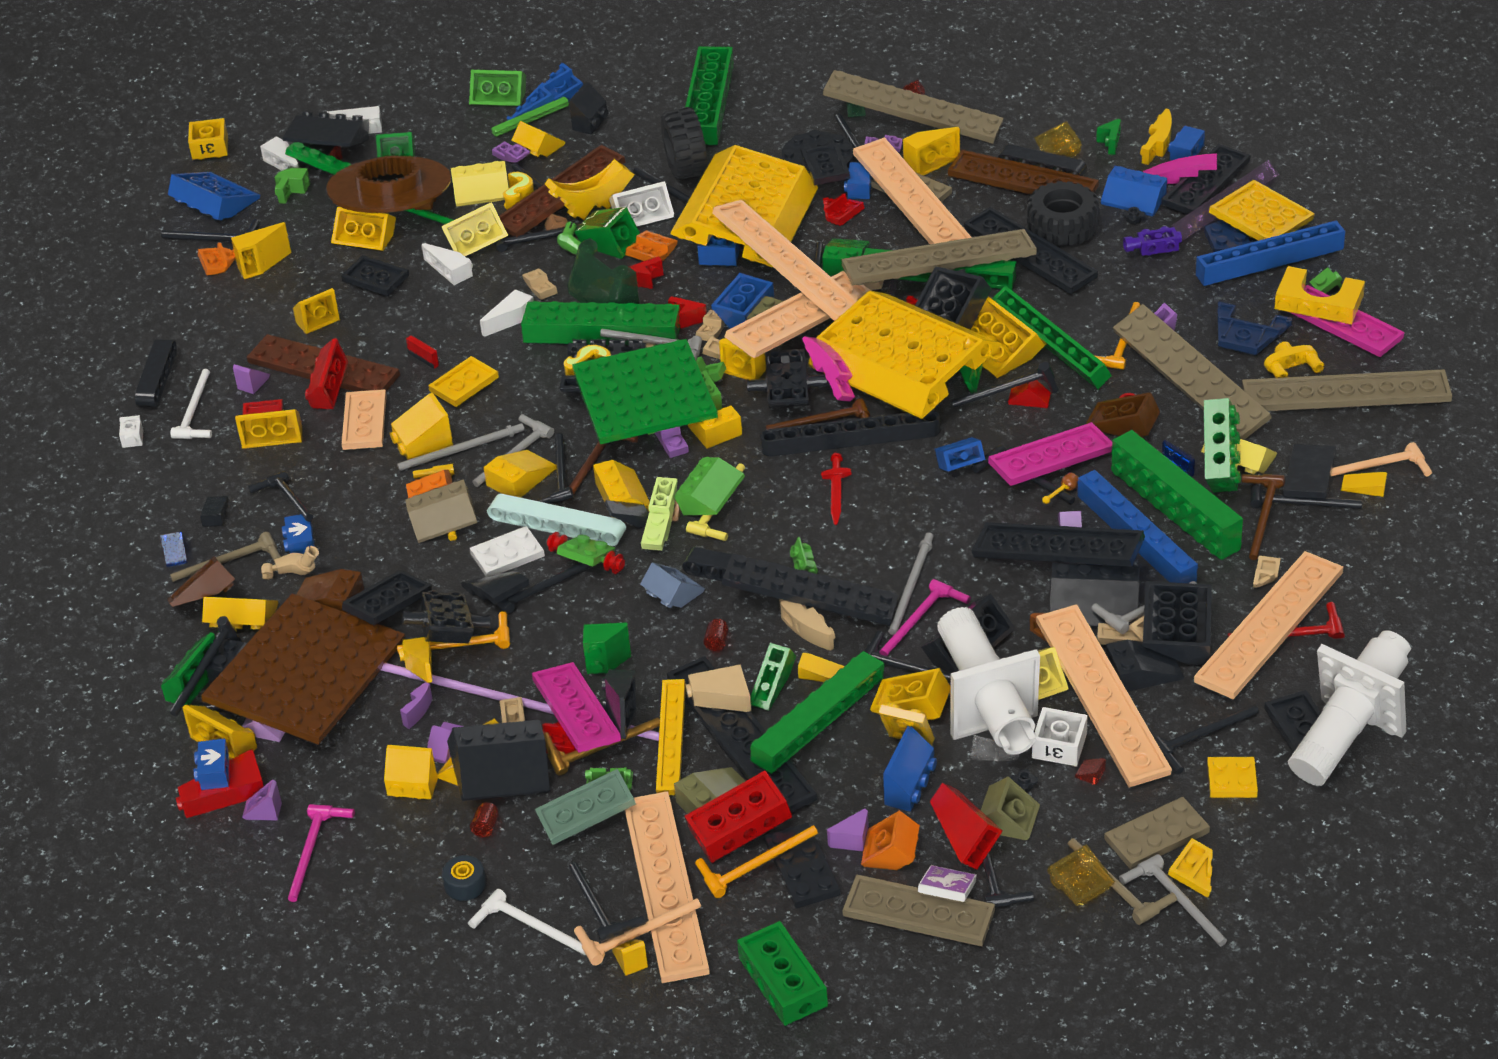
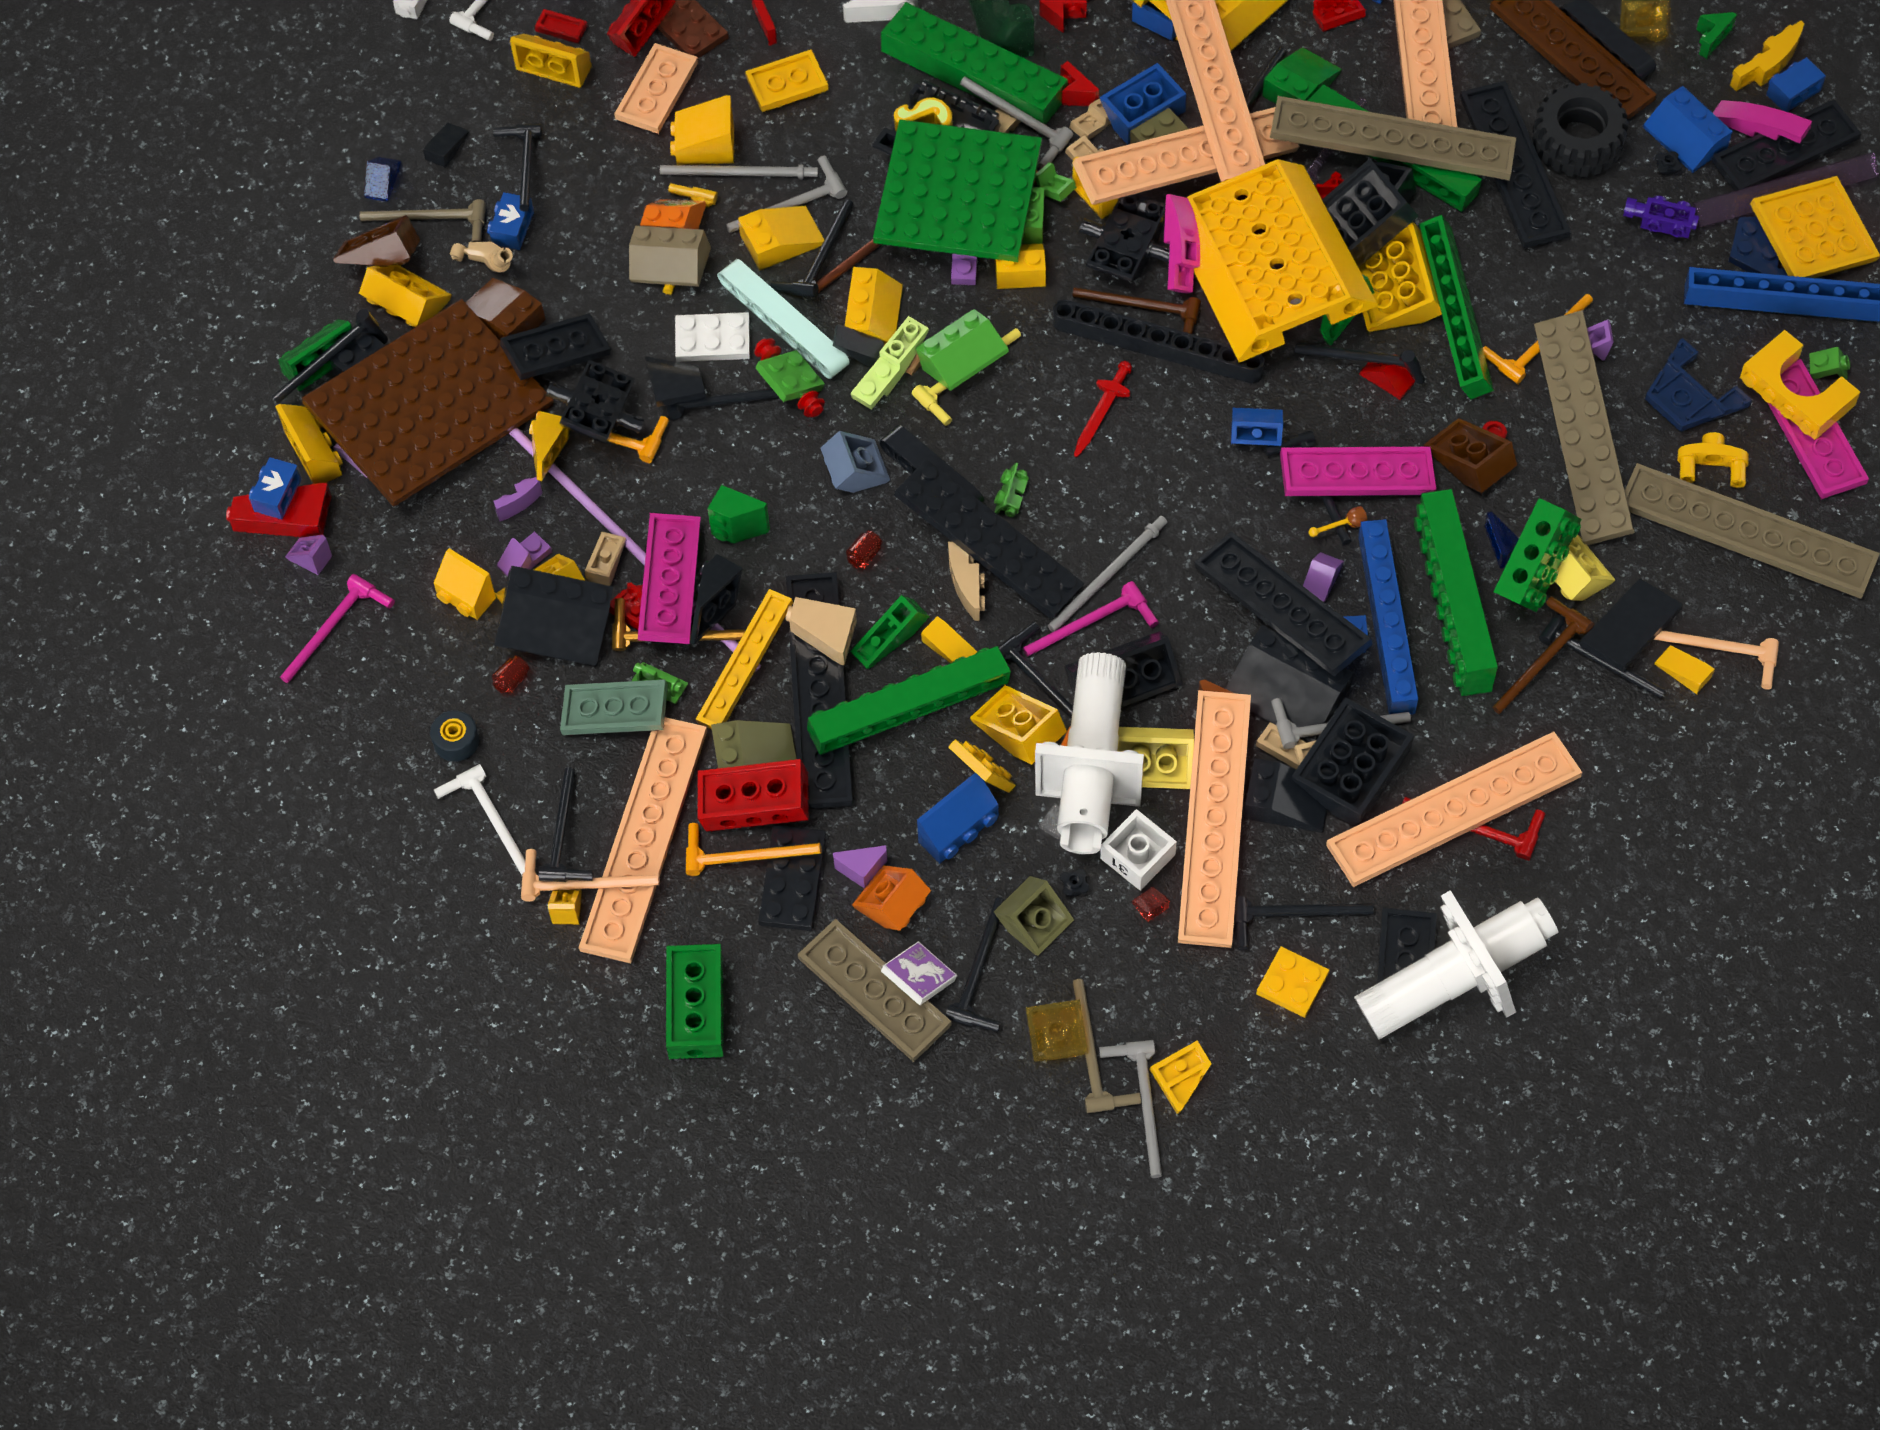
camera: 25 degrees right, 20 degrees up
(965, 825) = (975, 912): red slope -> none
(1157, 832) = (1172, 1012): dark tan plate -> none
(1266, 571) = (1498, 736): tan slope -> none

